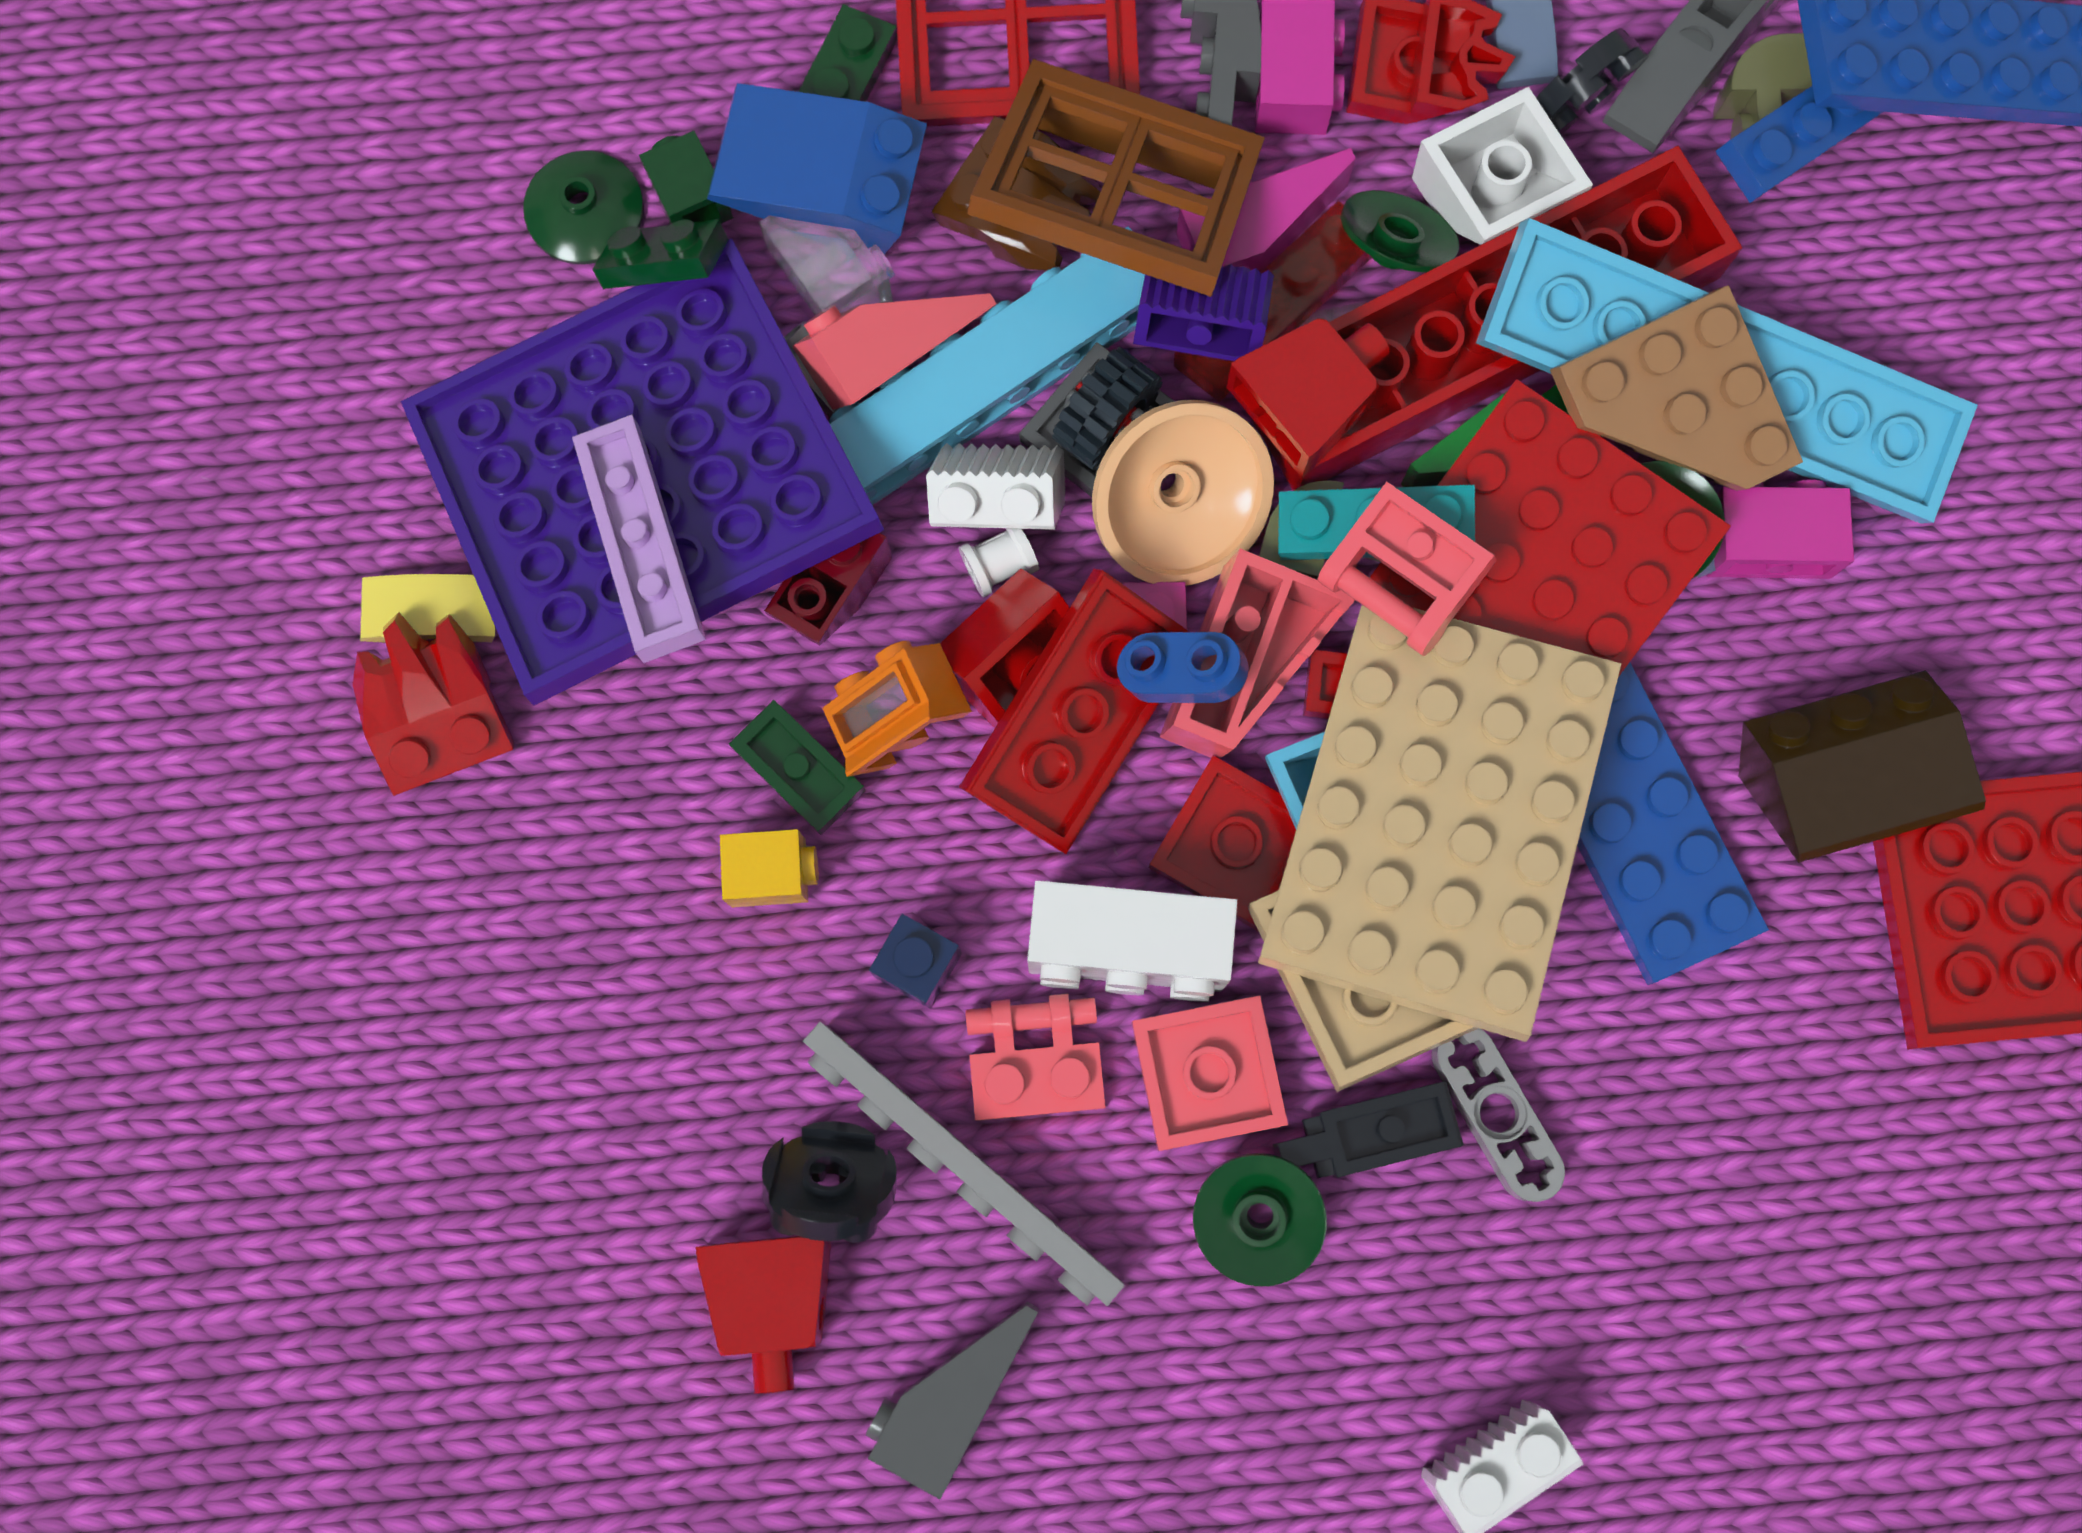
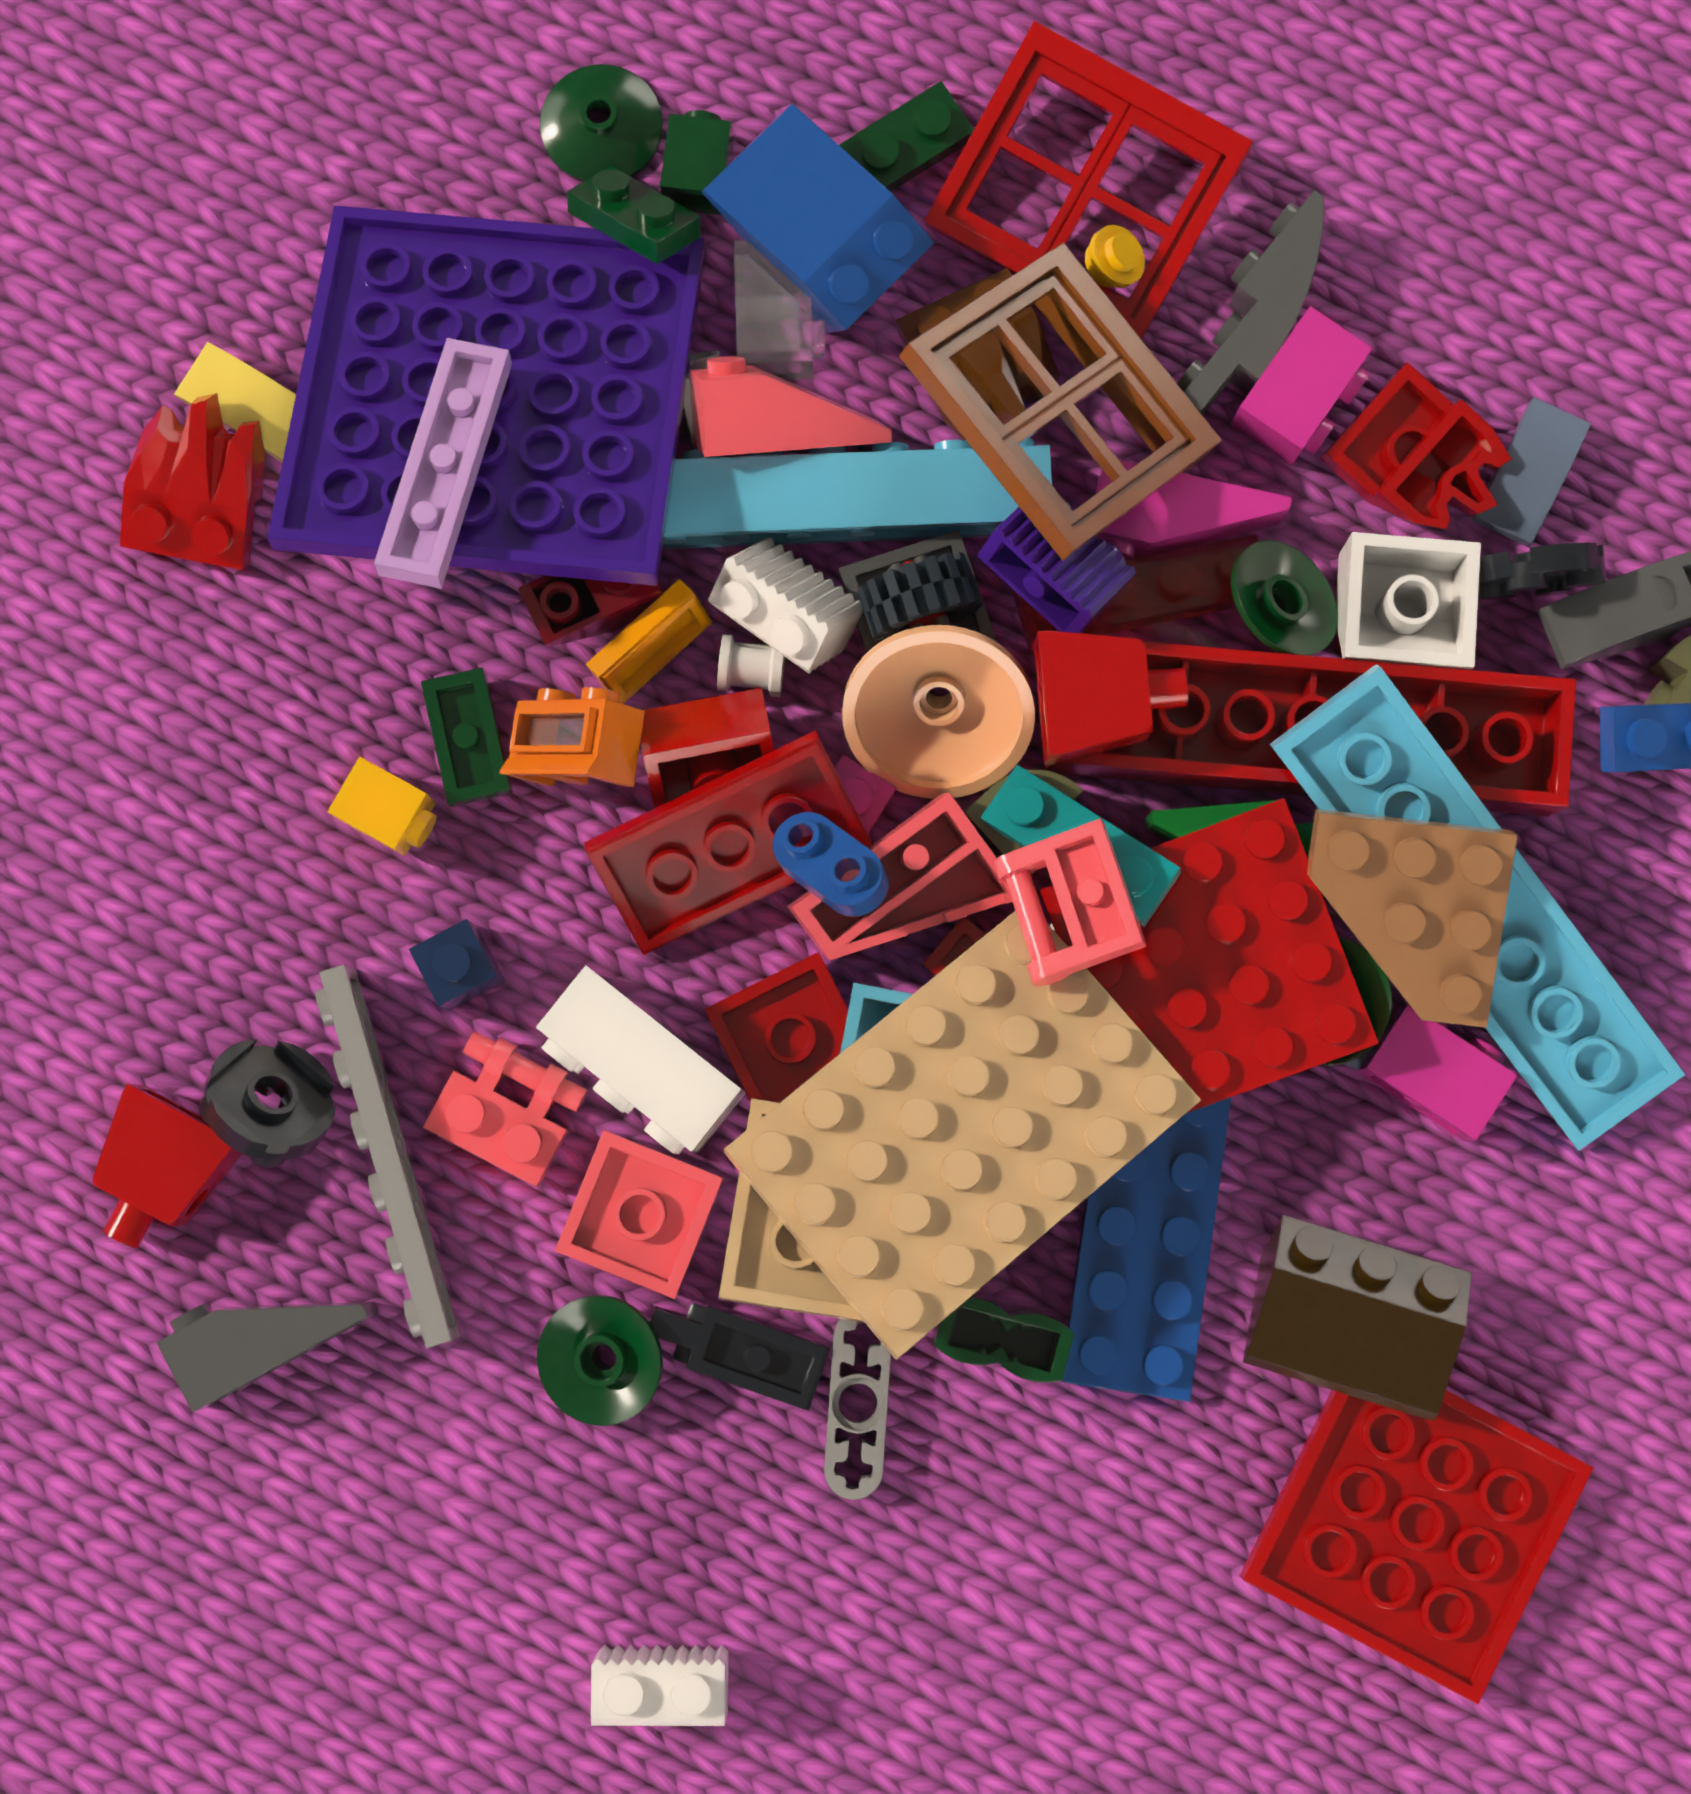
camera: 30 degrees right, 5 degrees up
(901, 587) = (650, 641): none -> light orange tile
(1079, 50) = (1114, 257): none -> yellow plate
(1598, 971) = (1020, 1340): none -> dark green brick

